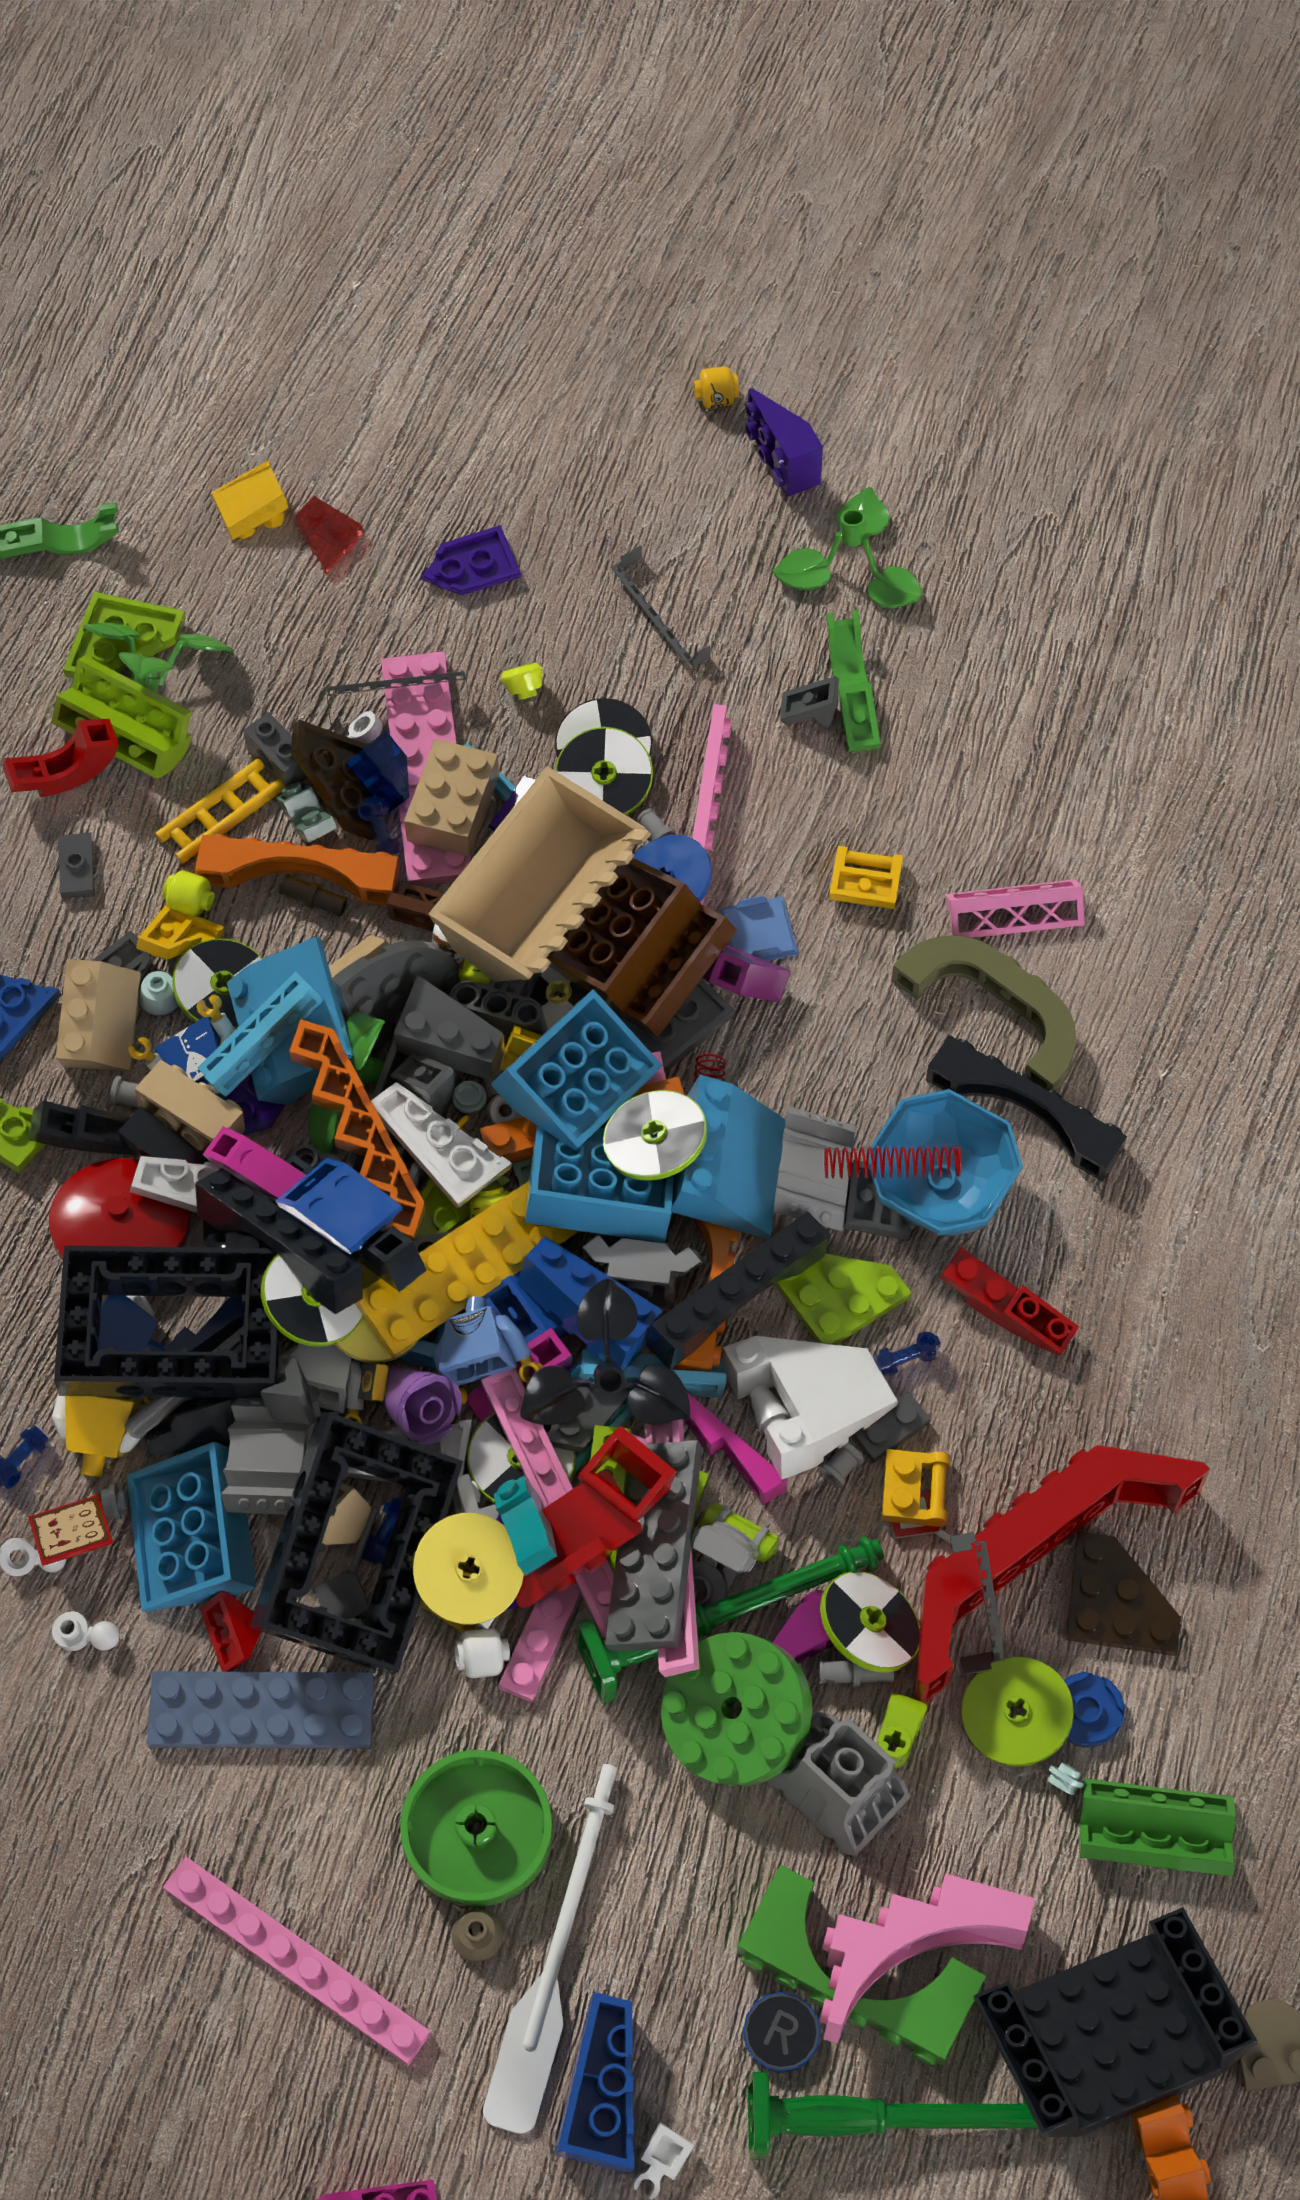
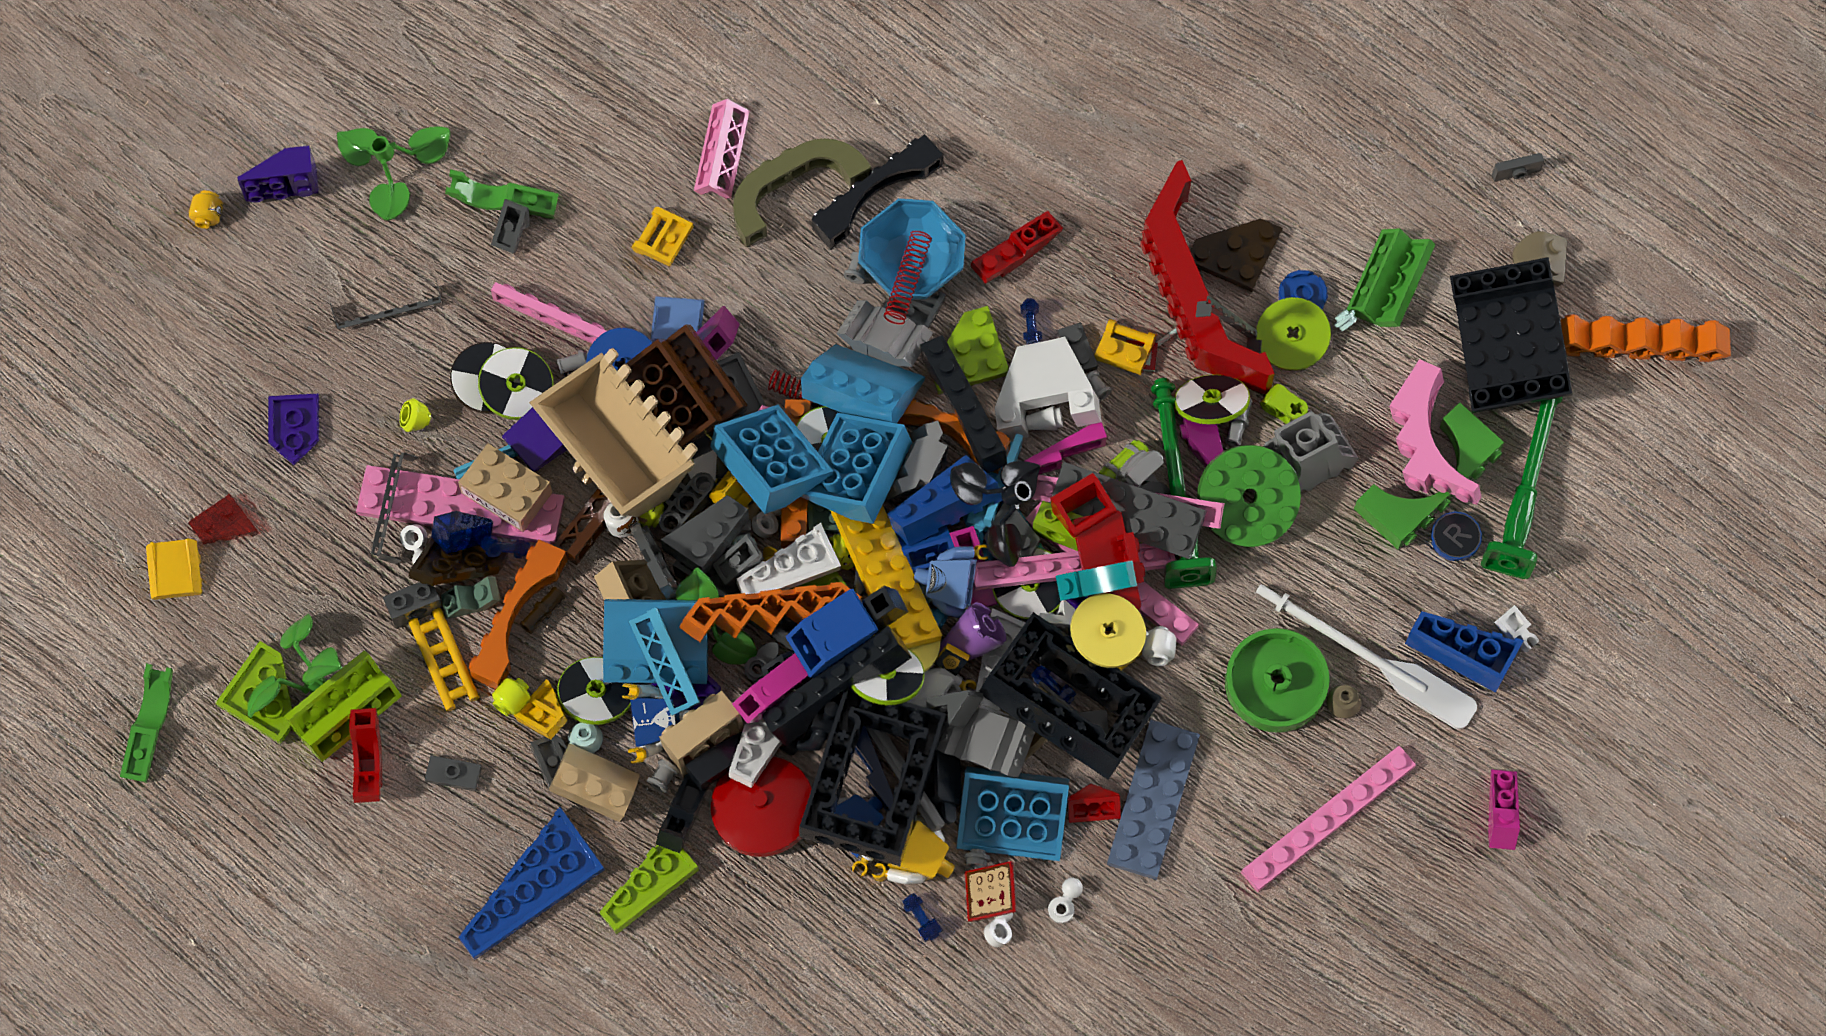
camera: 75 degrees left, 5 degrees up
(630, 1132) = (852, 432): piece -> none

